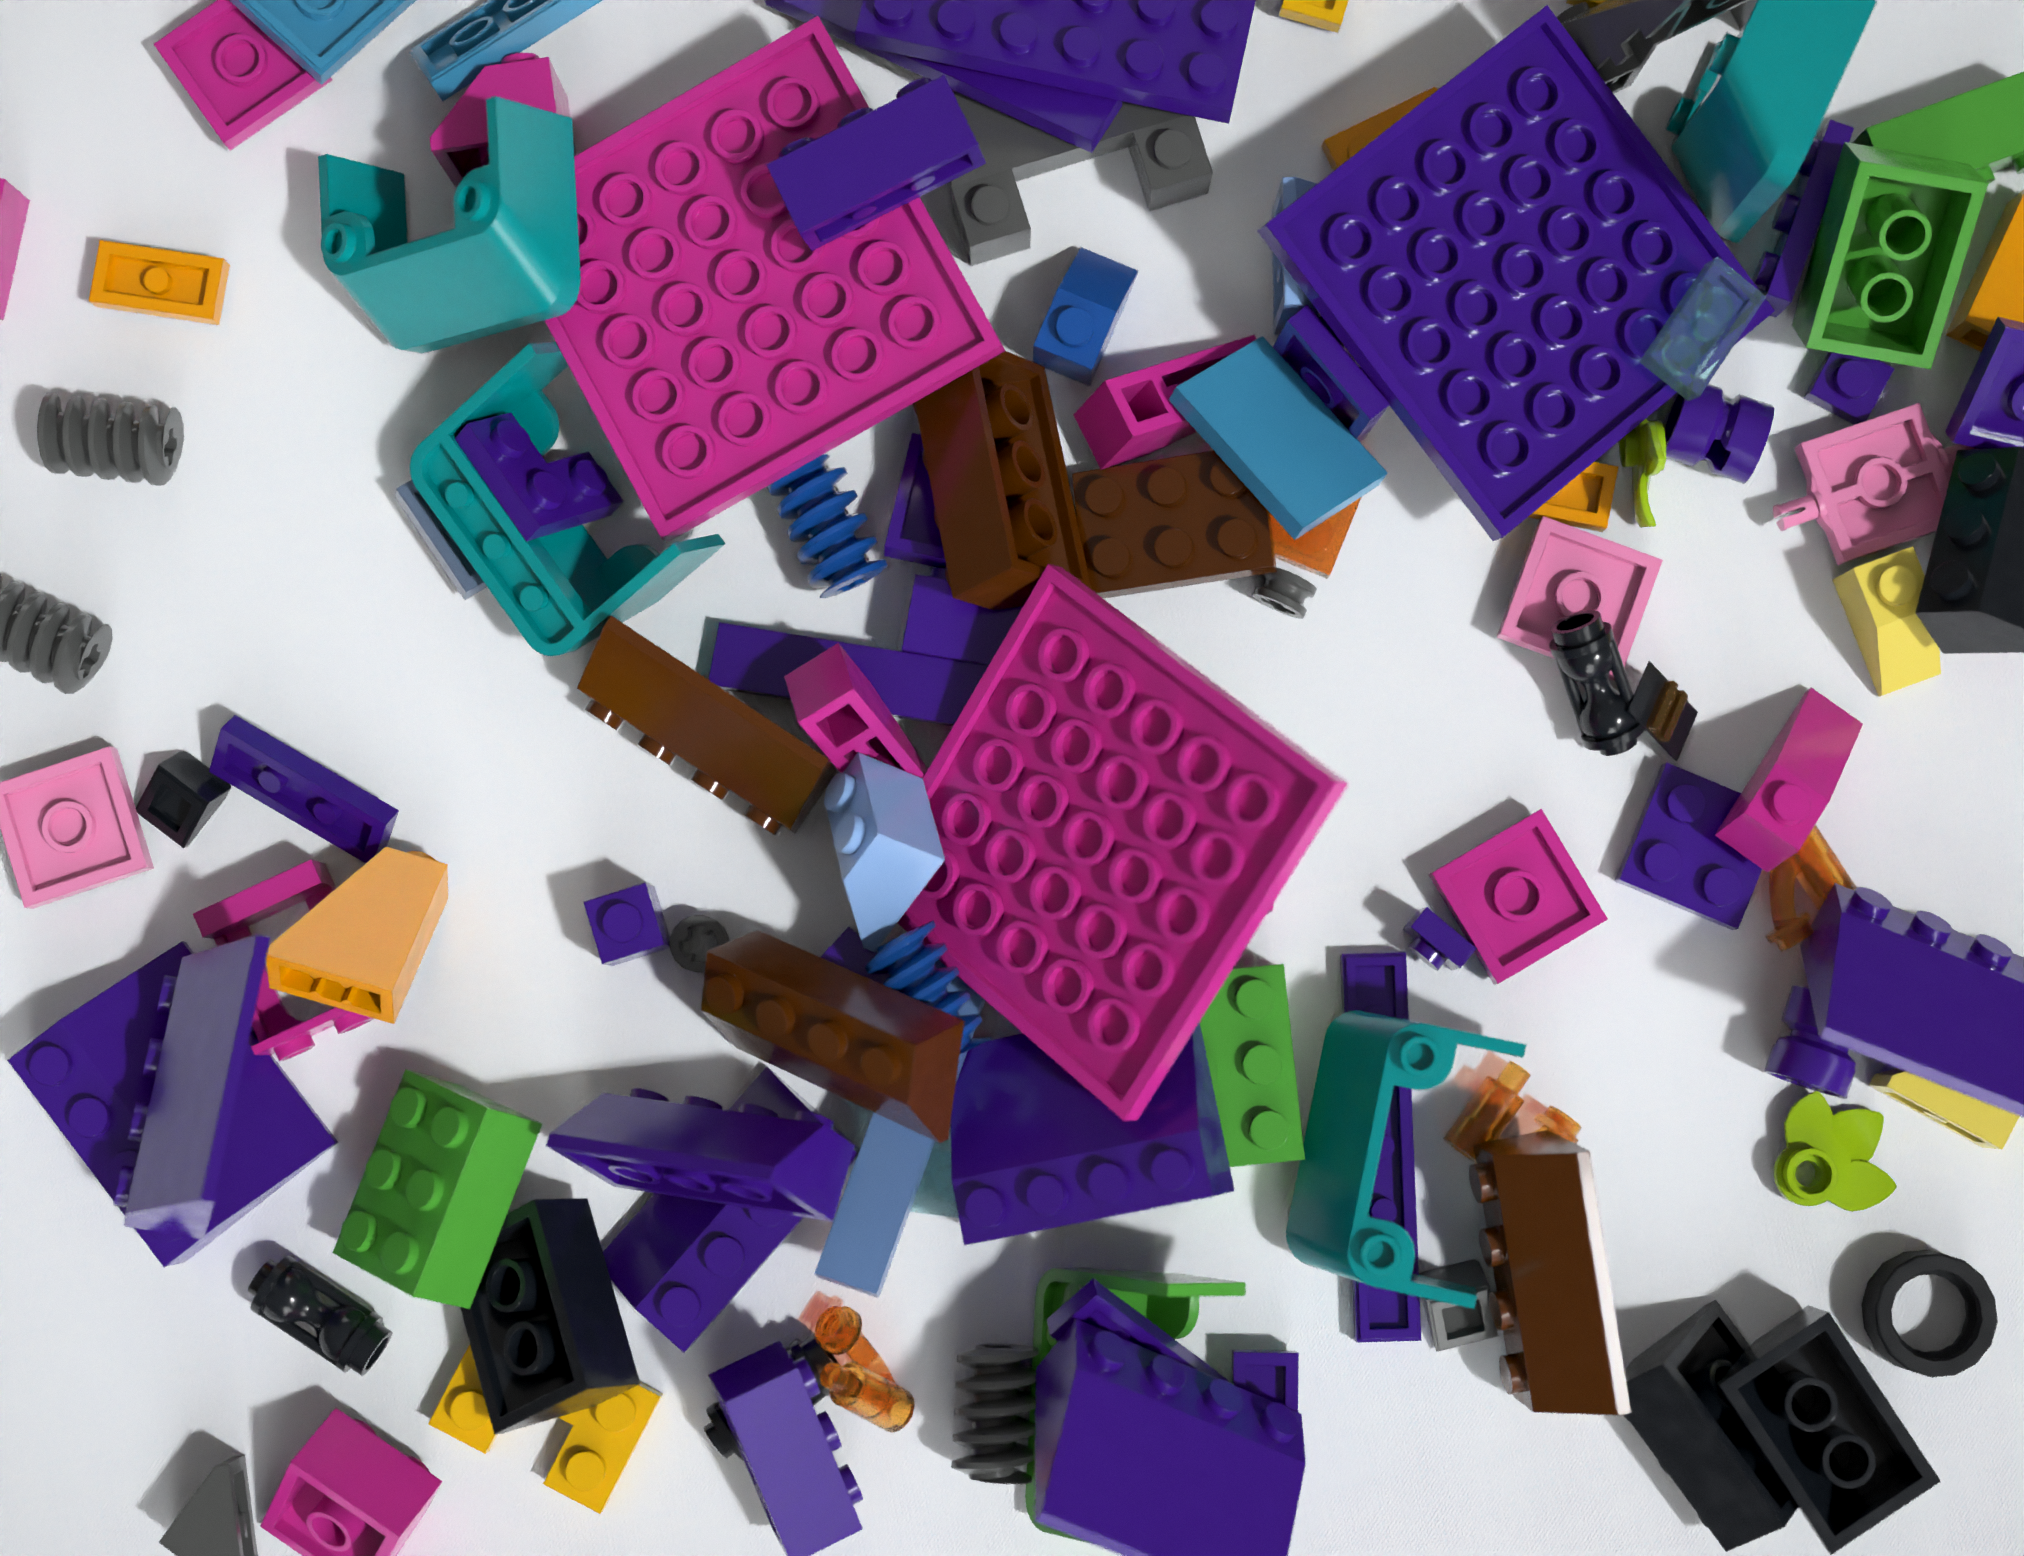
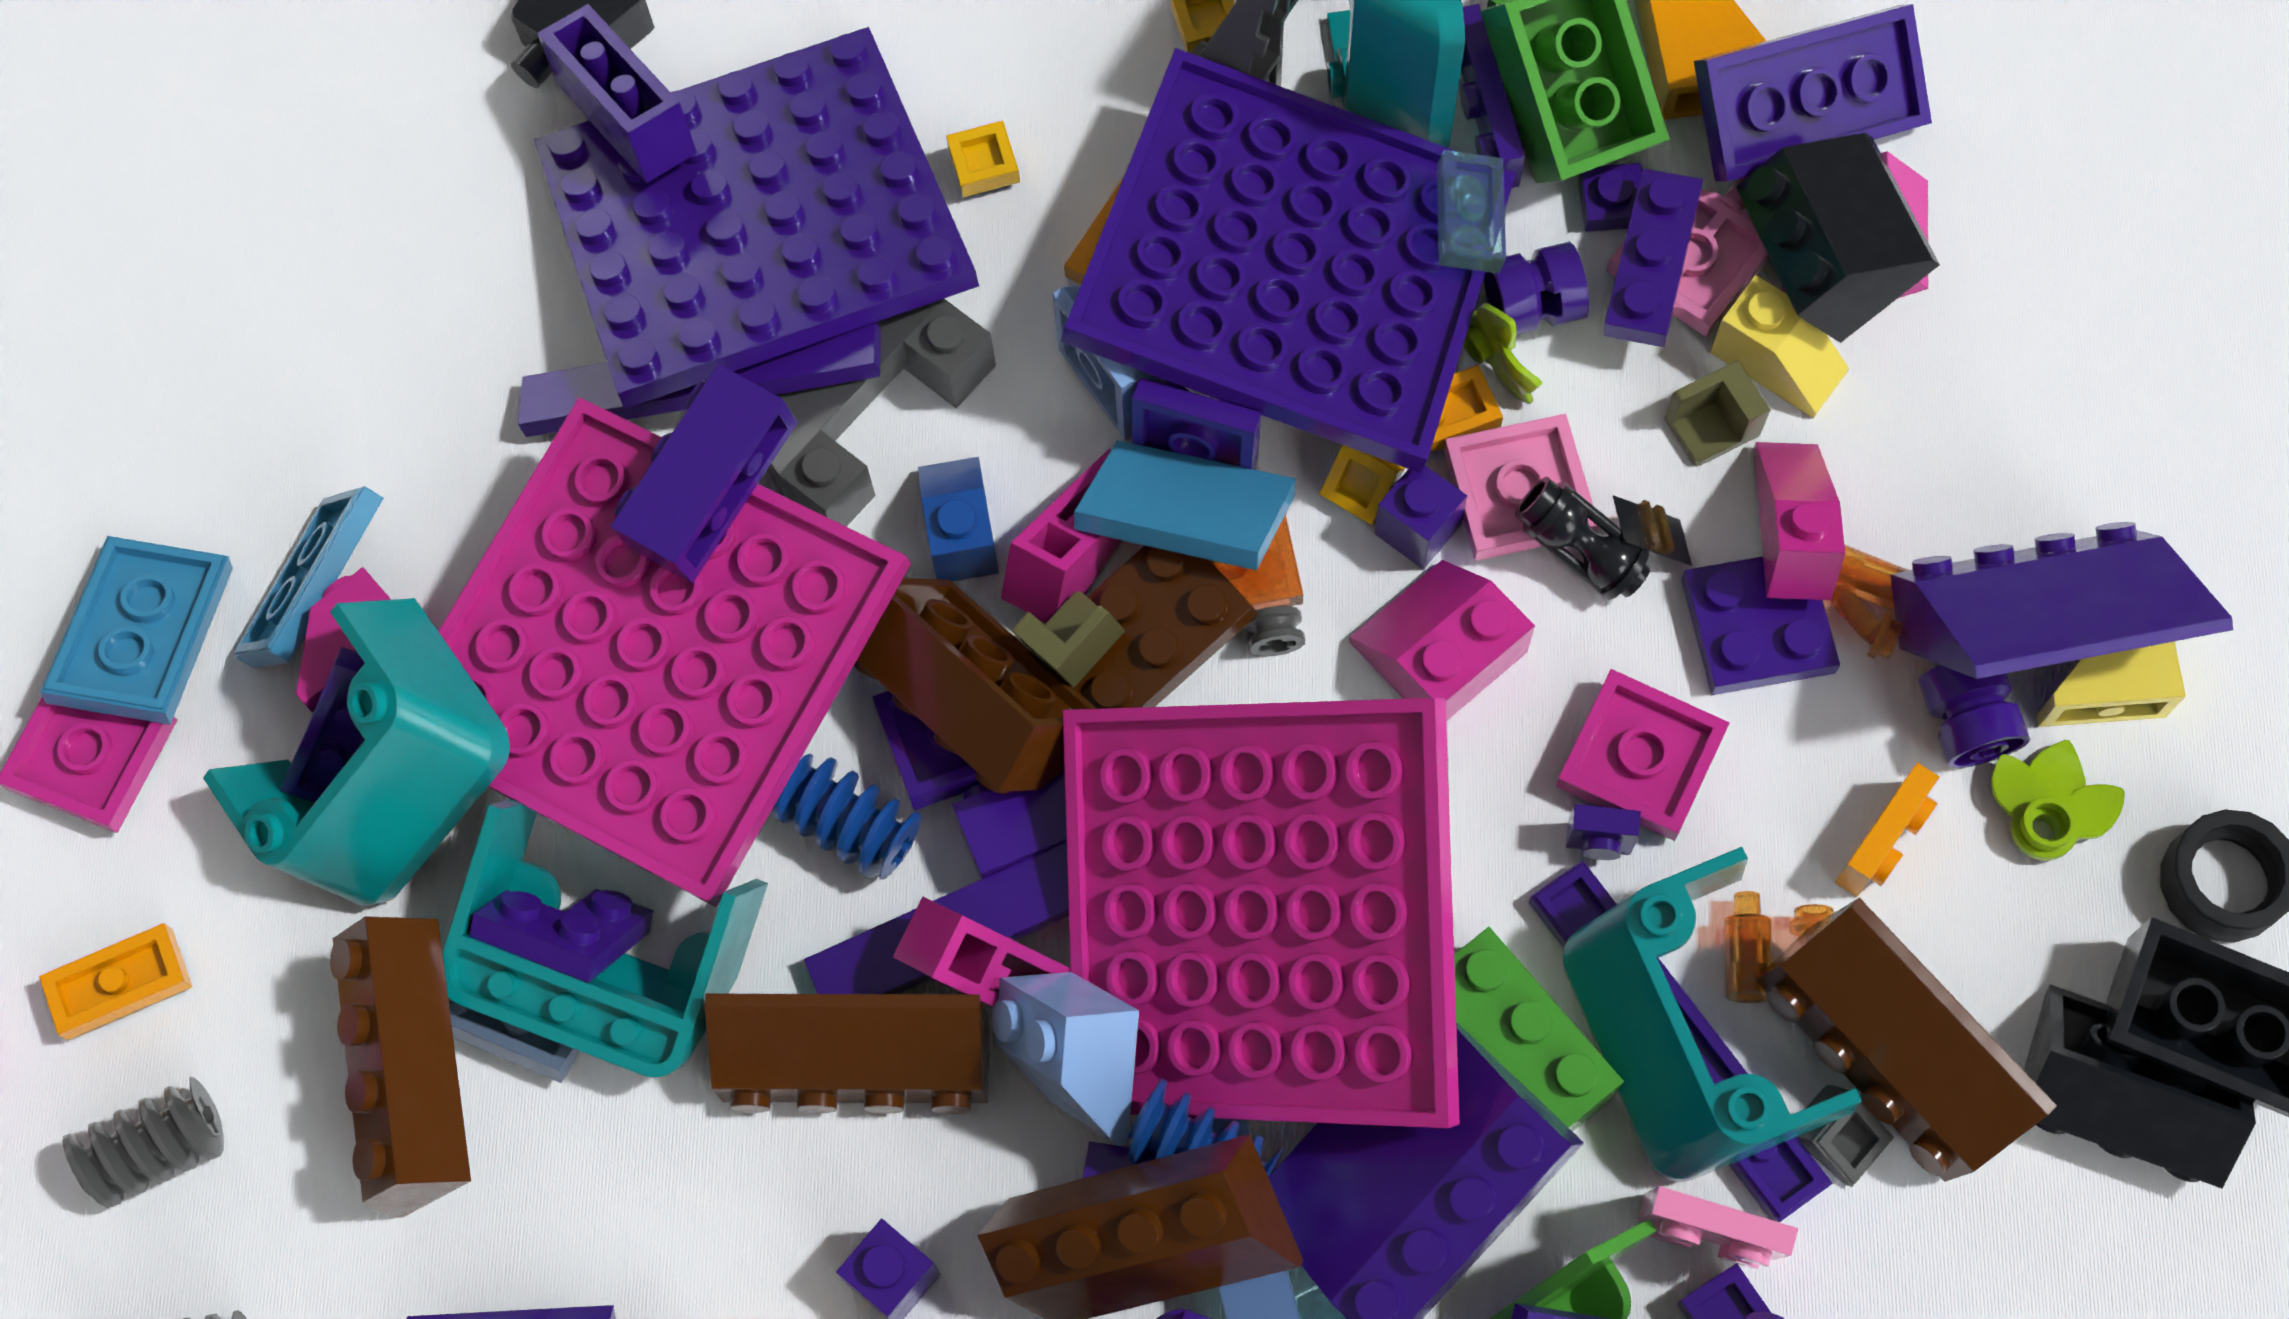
camera: 30 degrees left, 15 degrees down
(341, 506) = (399, 1063): none -> reddish brown slope
(425, 200) = (329, 735): none -> dark purple plate
(683, 933) = (943, 1255): dark grey bush -> none
(1104, 493) = (1072, 637): none -> olive panel
(1281, 1300) = (1741, 1235): none -> bright pink plate
(1420, 689) = (1445, 637): none -> dark pink slope
(1440, 512) = (1360, 482): none -> yellow plate
(1474, 571) = (1420, 515): none -> dark purple brick
(1701, 1086) = (1906, 810): none -> light orange plate
(1793, 643) = (1716, 413): none -> olive panel
(1838, 468) = (1653, 258): none -> dark purple plate

